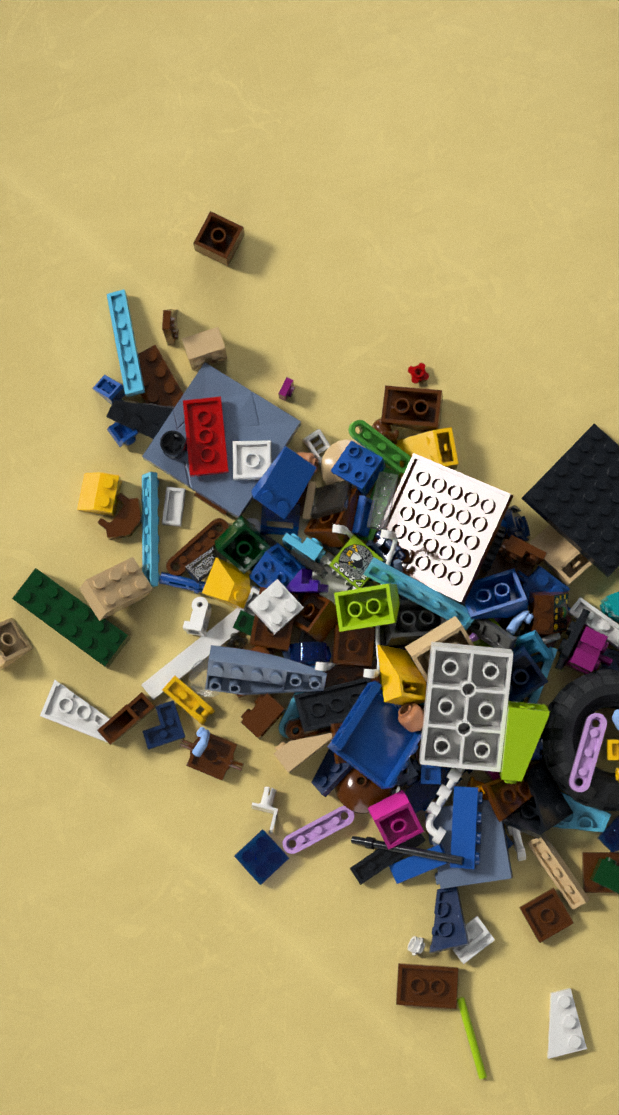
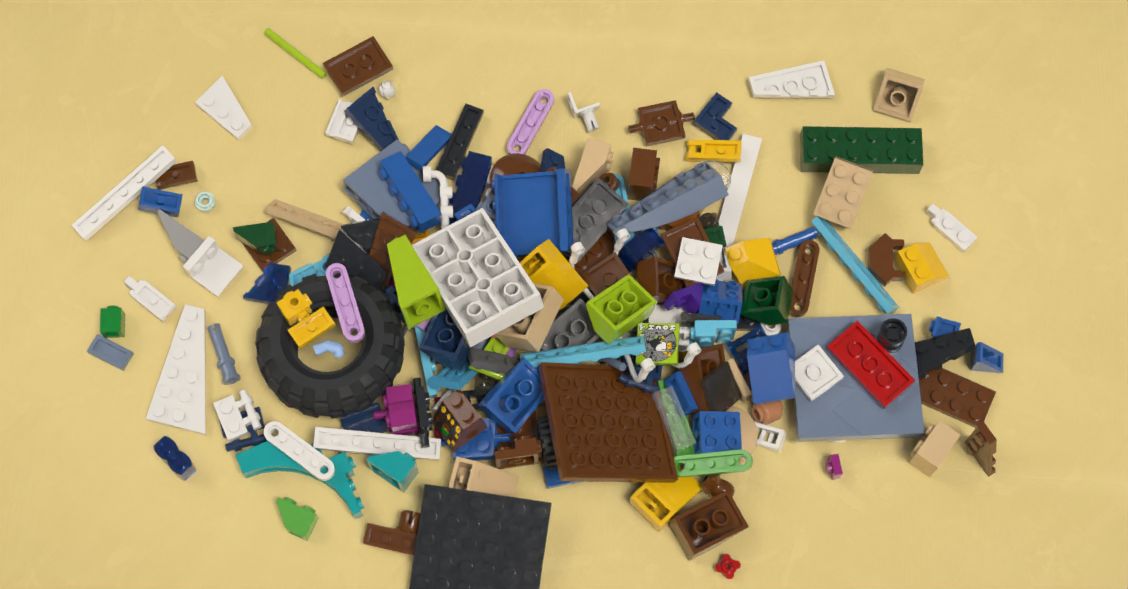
camera: 140 degrees right, 10 degrees down
(51, 508) = (951, 228): none -> white hinge
(125, 343) = (1007, 407): medium azure plate -> none
(126, 718) = (752, 101): reddish brown slope -> none
(173, 506) = (850, 299): white tile -> none
(199, 617) = (756, 220): white leg -> none
(202, 565) = (787, 262): clear smoke plate -> none
(203, 742) = (675, 123): light blue arm -> none
(219, 238) = (1004, 562): reddish brown brick -> none
(261, 857) = (561, 73): clear blue plate -> none
(372, 843) = (478, 140): black bar -> none
(395, 819) = (472, 162): dark pink slope -> none
(411, 717) = (519, 245): nougat head -> none
(516, 524) = (539, 472): dark blue plate -> none
(517, 620) = (481, 389): light blue arm -> none
(546, 915) = (294, 179): reddish brown plate -> none

